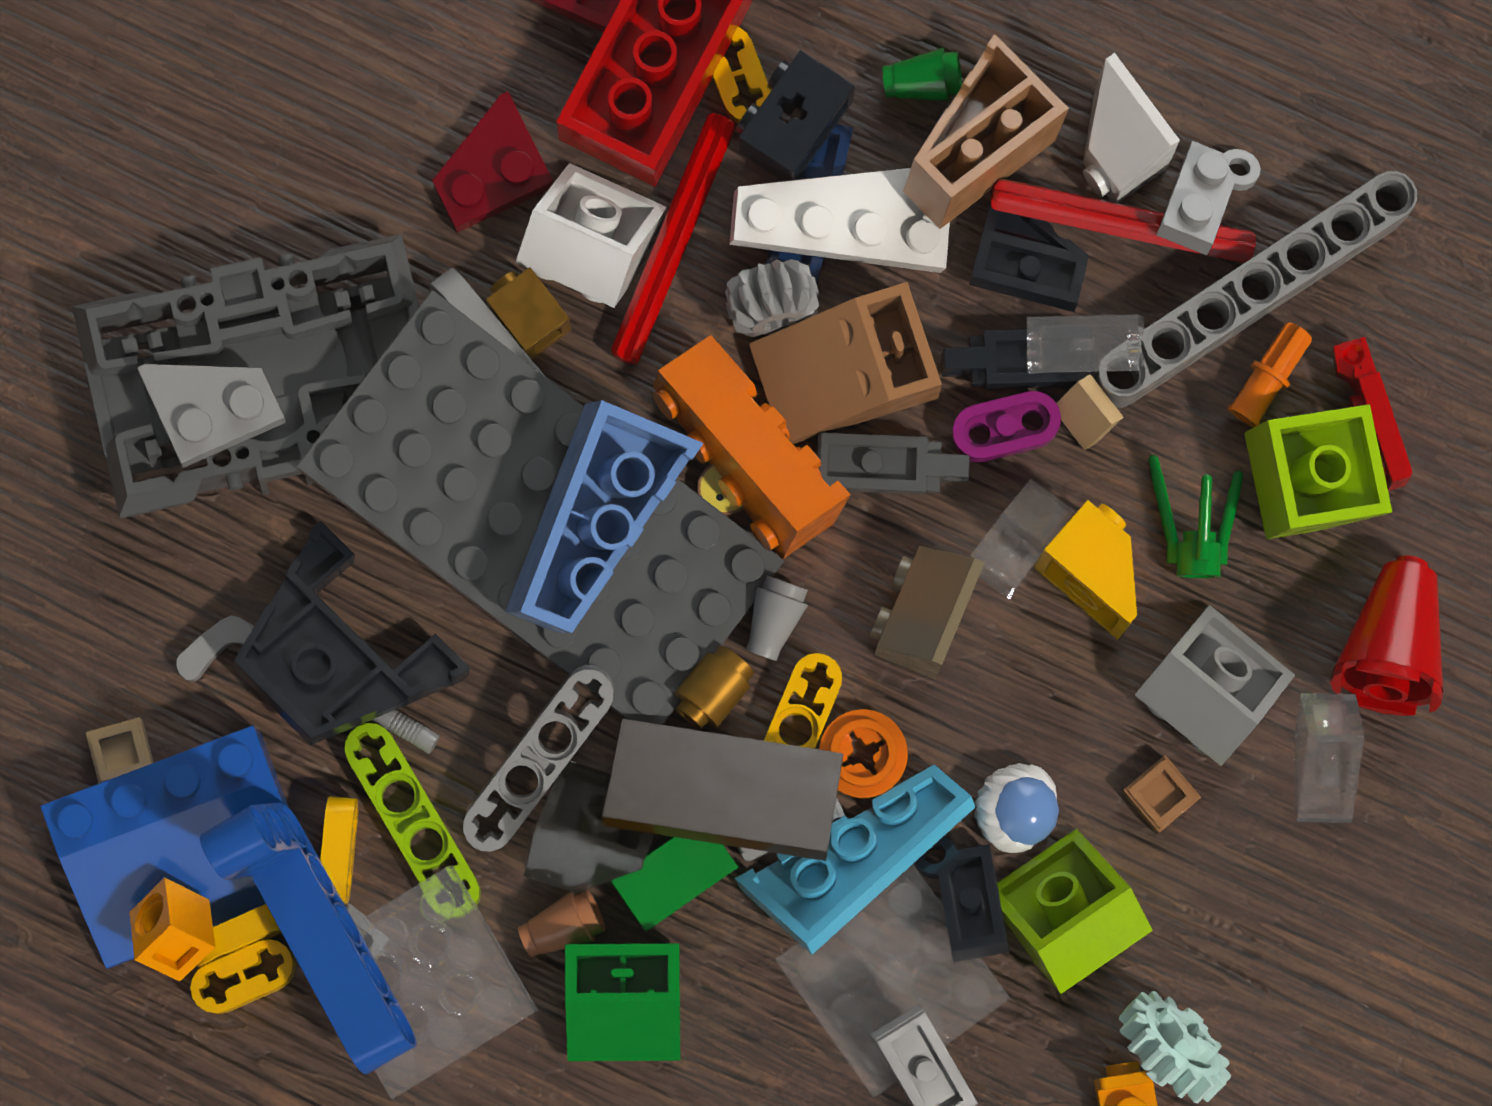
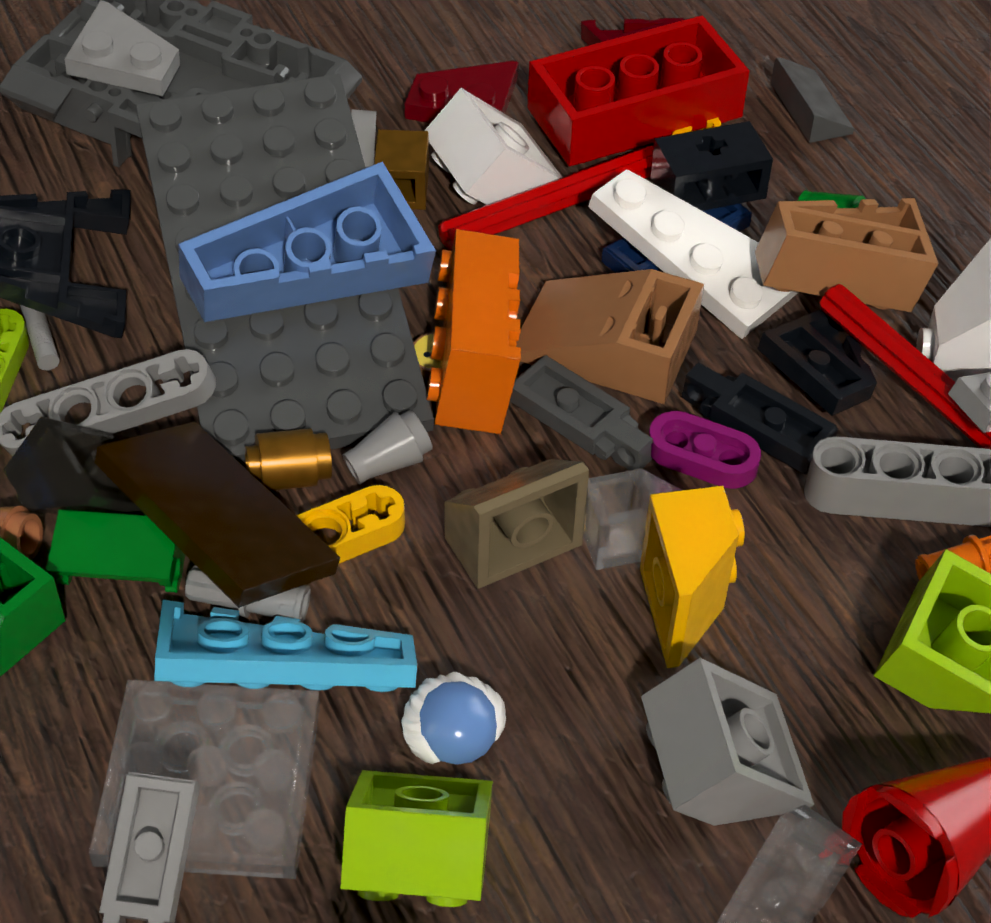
camera: 40 degrees right, 30 degrees down
(771, 297) = (587, 245): light grey gear -> none
(888, 762) = (387, 582): orange gear -> none
(968, 899) = (334, 749): black hinge -> none
(1084, 343) = (823, 398): clear hinge -> none
(1088, 412) = (784, 479): tan tile -> none
(1161, 794) = (597, 809): medium nougat tile -> none
(1199, 552) = (798, 640): green plant -> none

